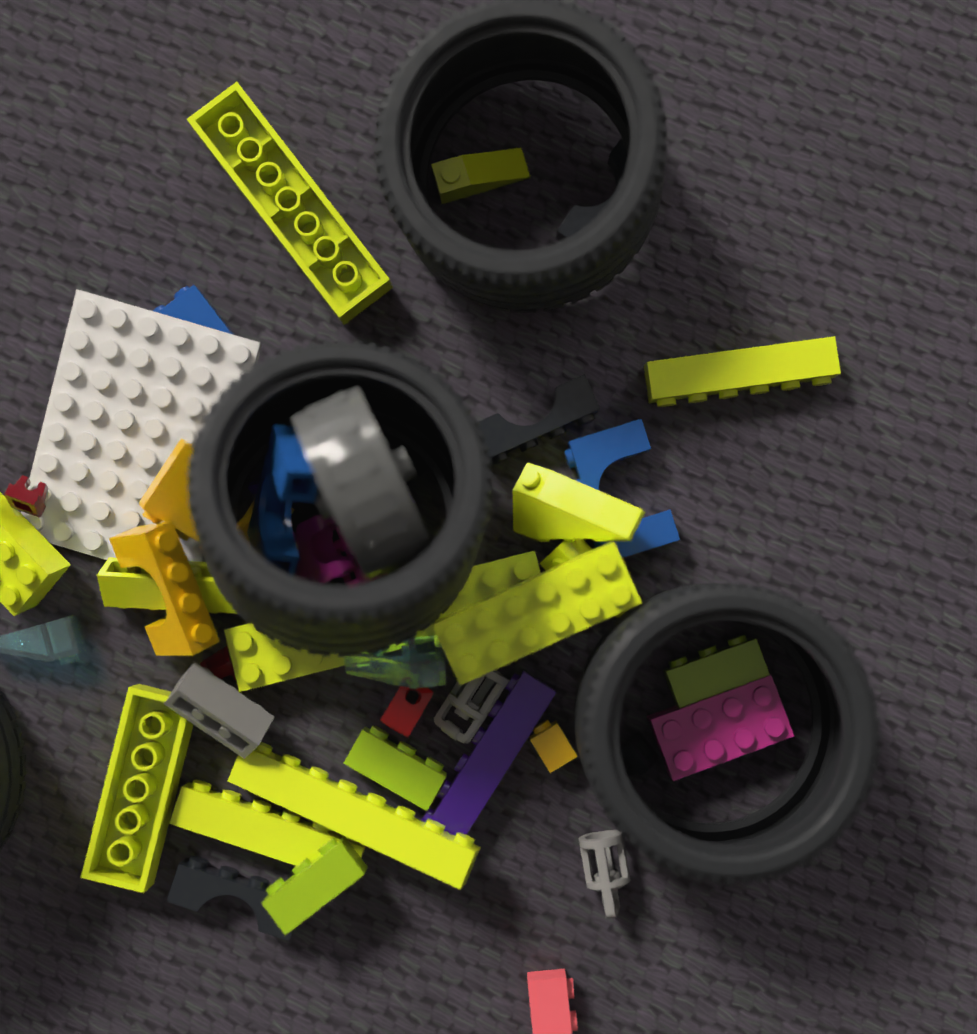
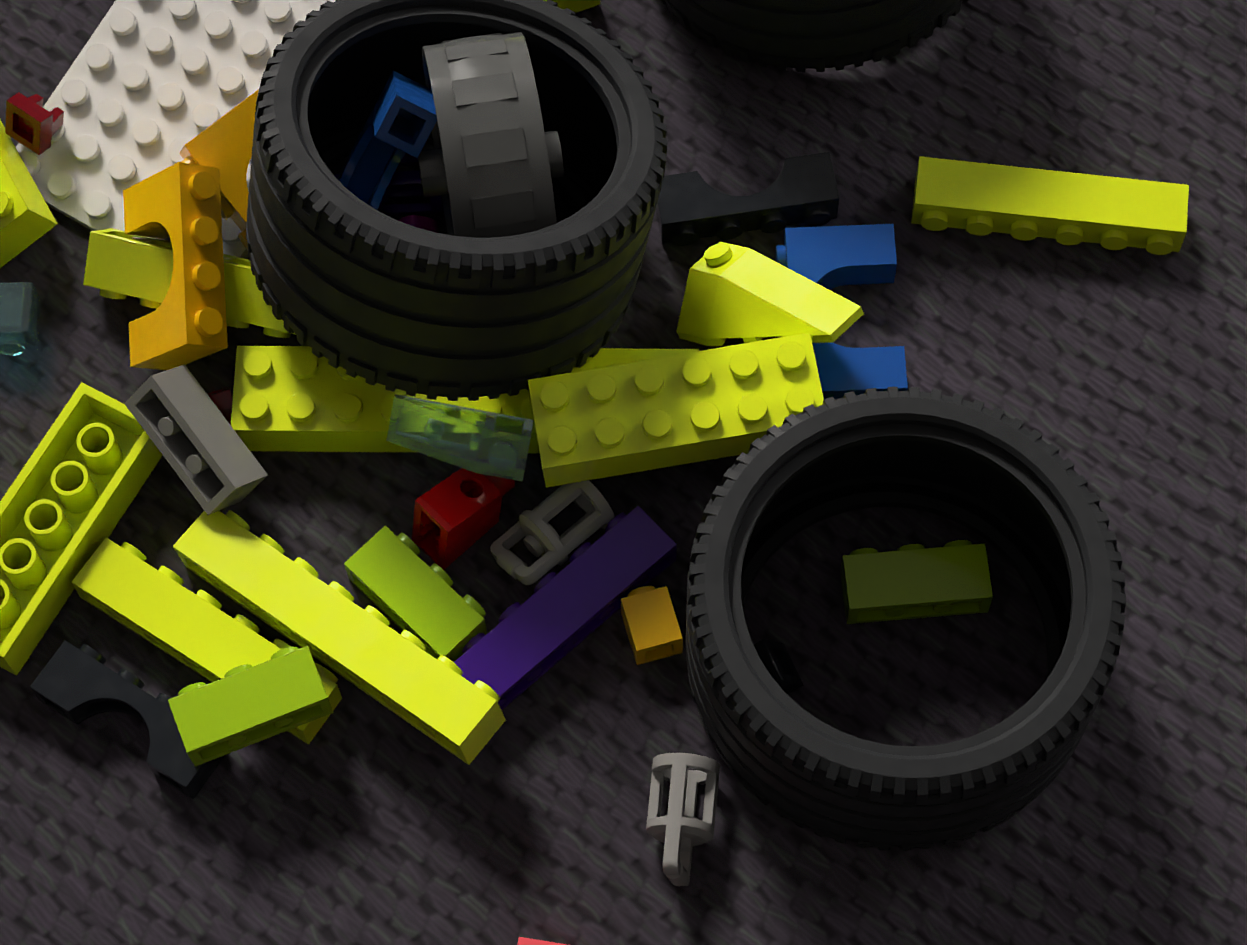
camera: 10 degrees right, 20 degrees down
(720, 727) = (903, 656): dark pink brick -> none

